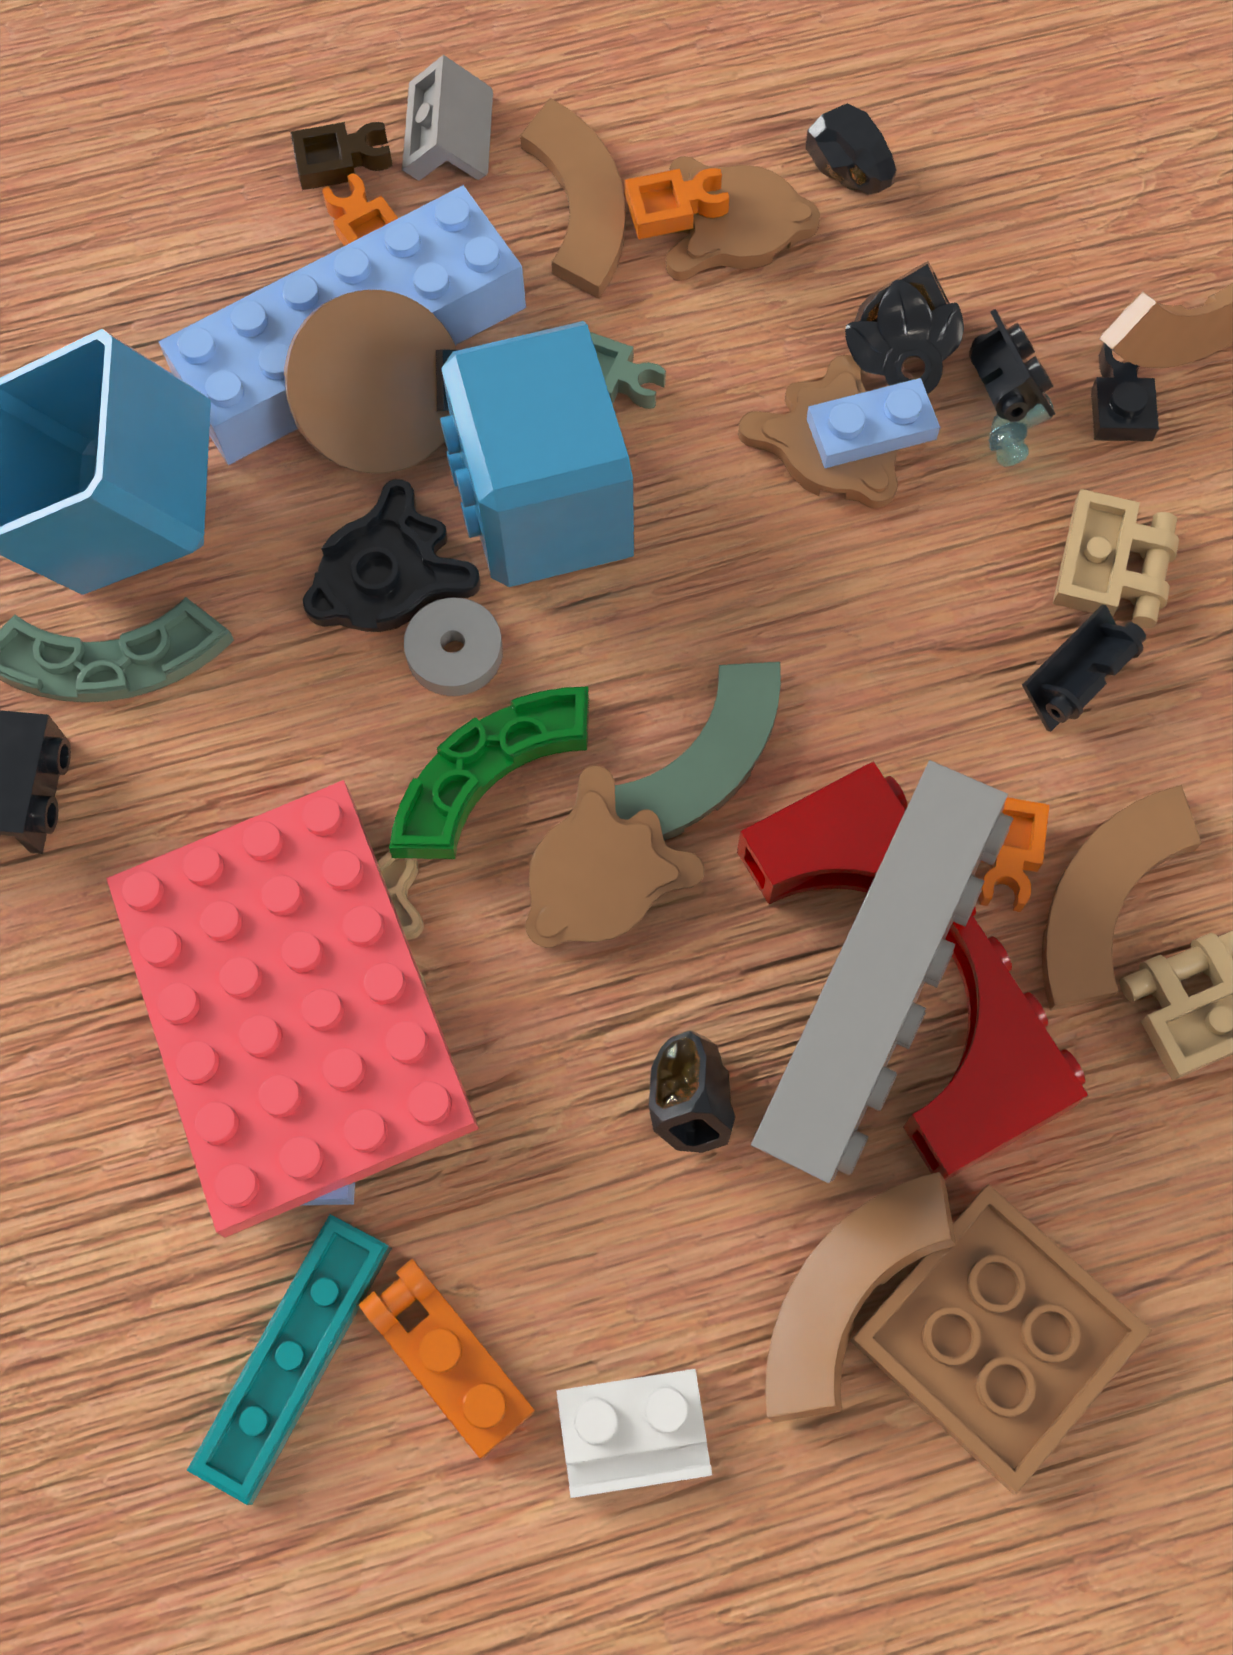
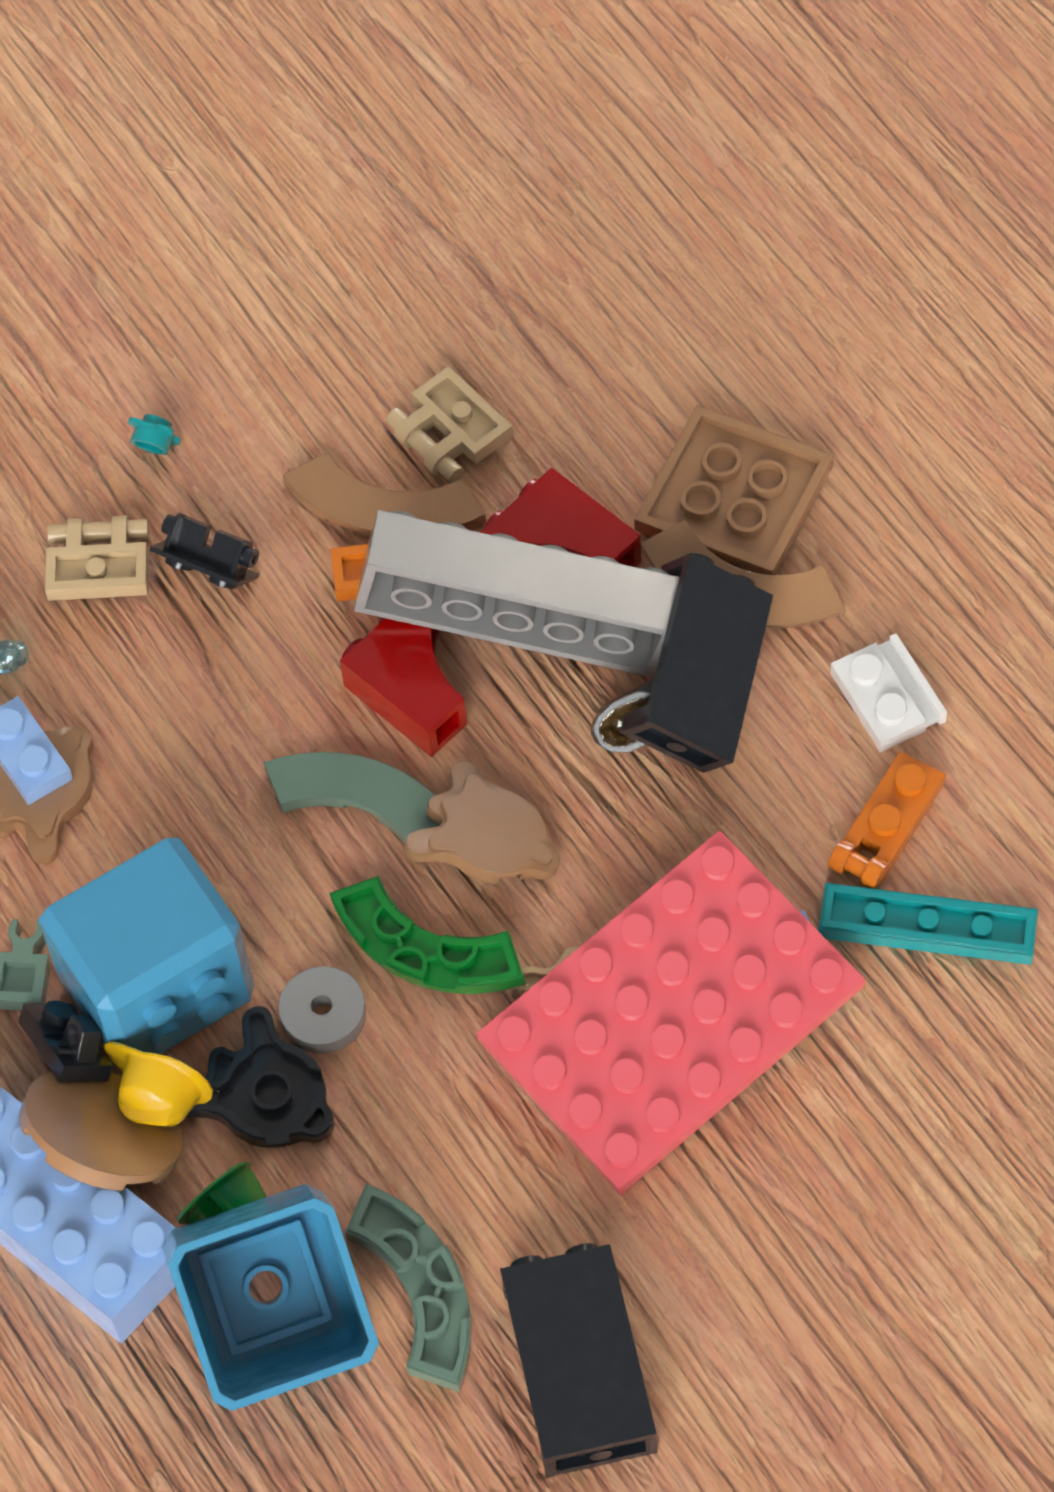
camera: 105 degrees left, 10 degrees down
(246, 481) = (227, 1192): none -> green piece
(394, 439) = (156, 1086): none -> yellow piece
(719, 1185) = (703, 666): none -> black panel

